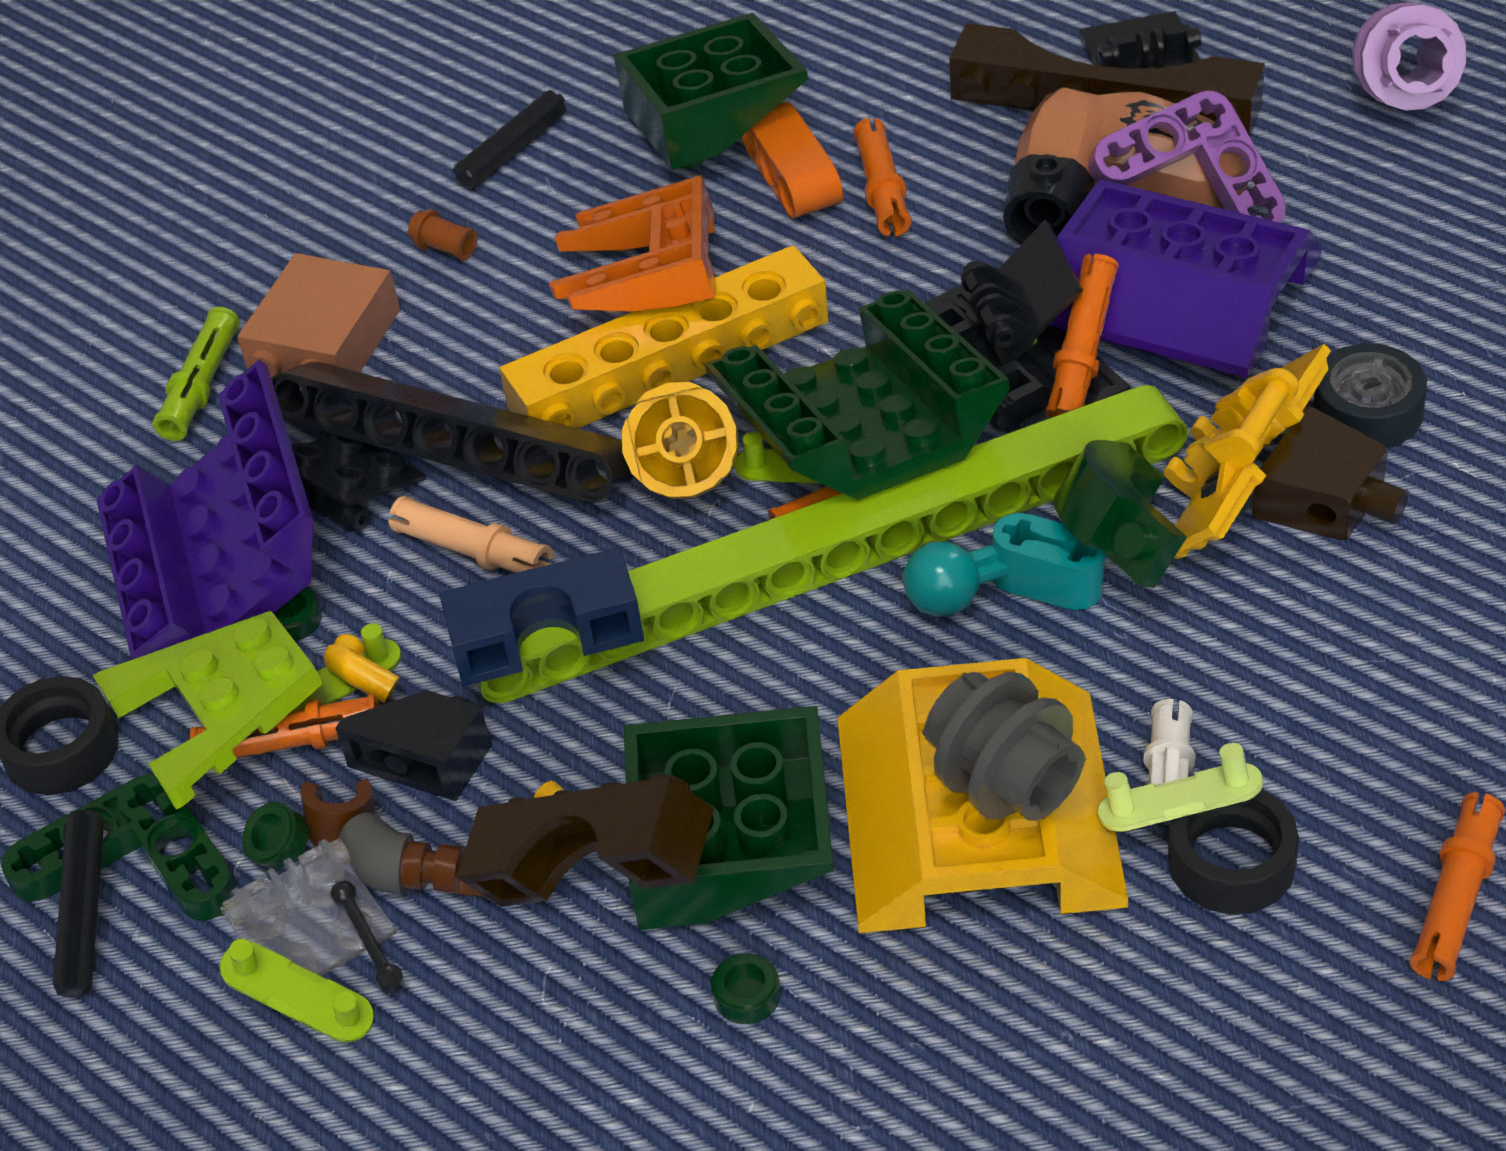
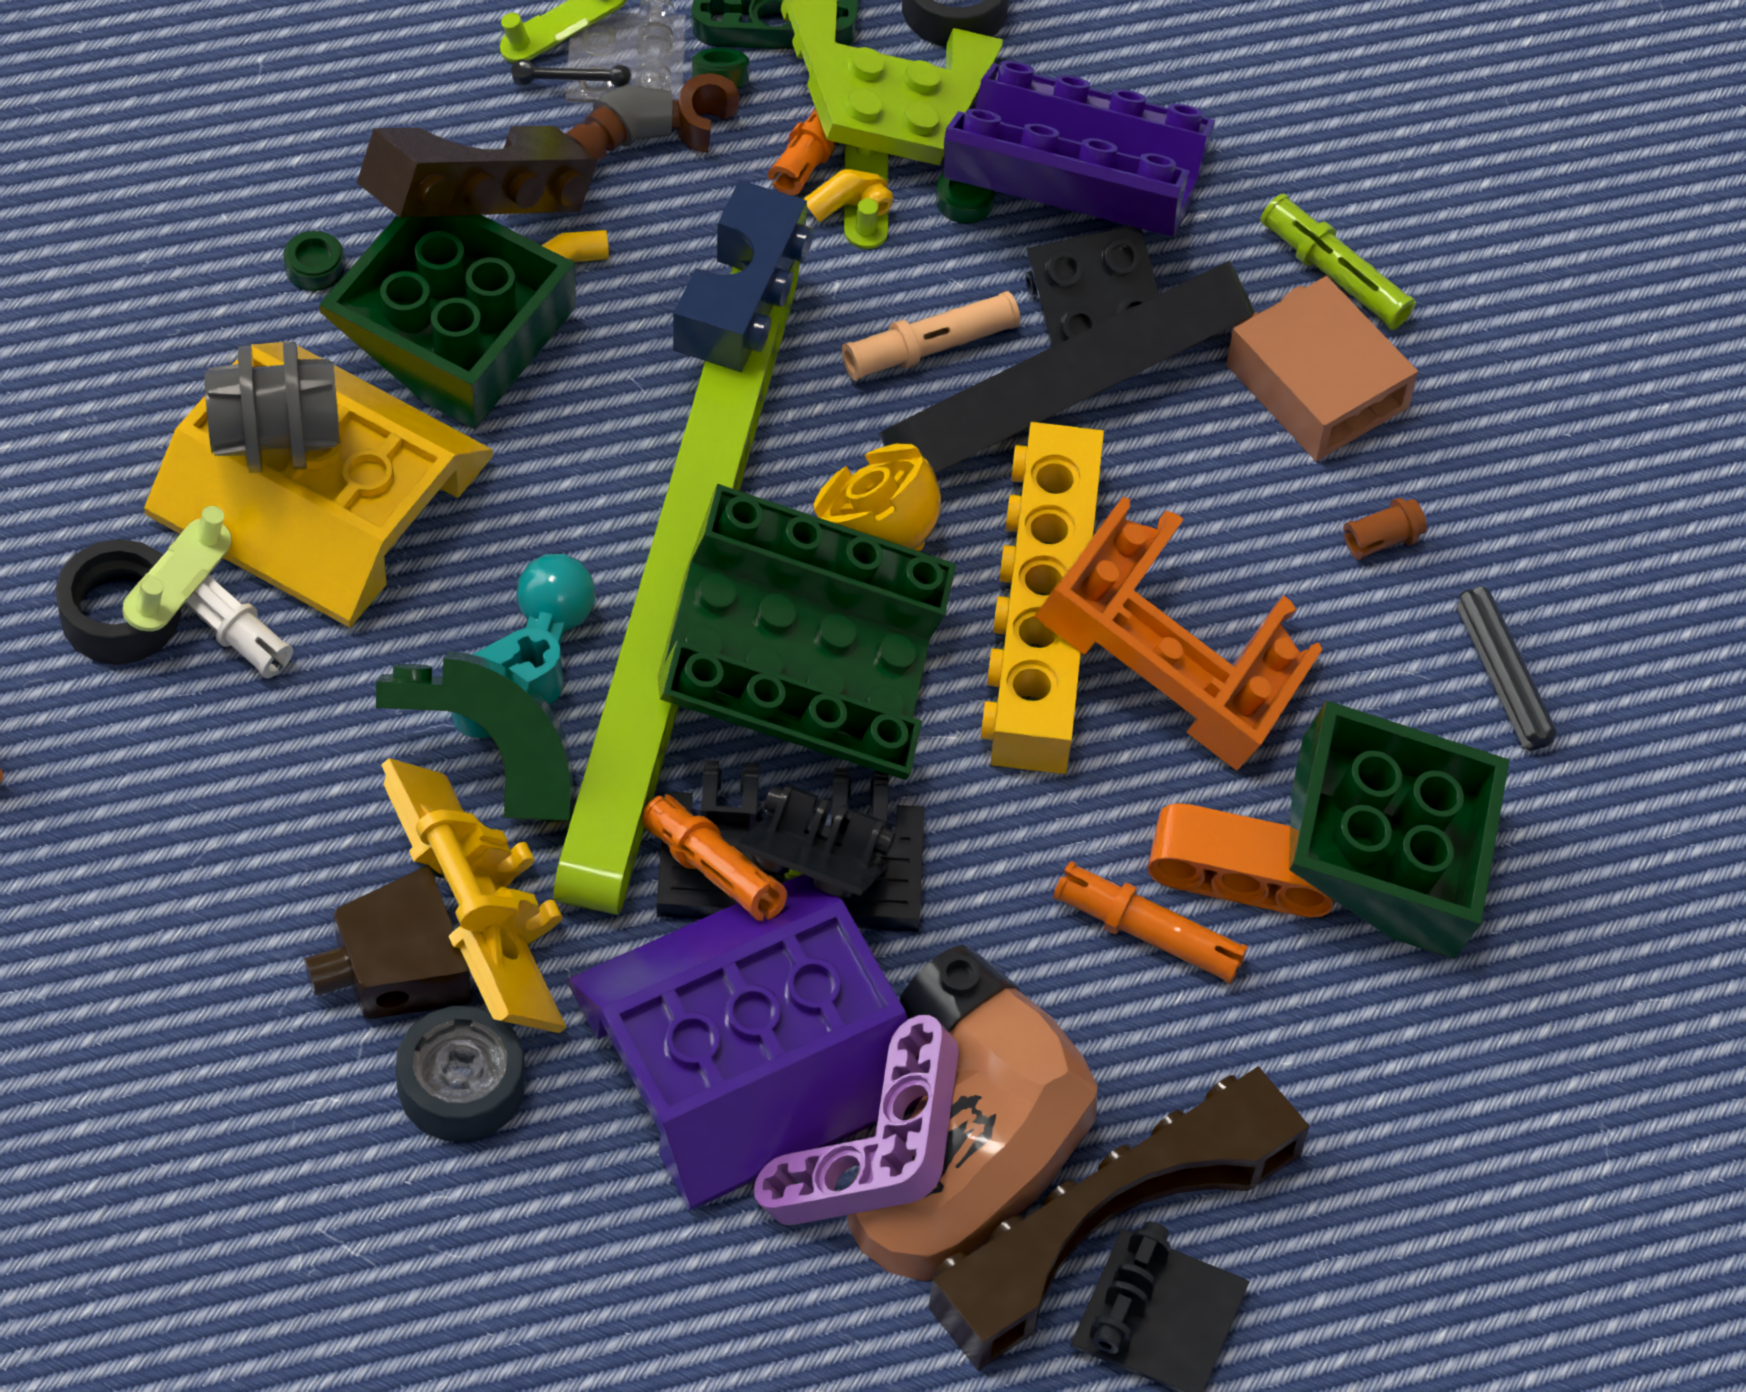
camera: 115 degrees right, 10 degrees up
(418, 742) = (704, 181): black slope -> none

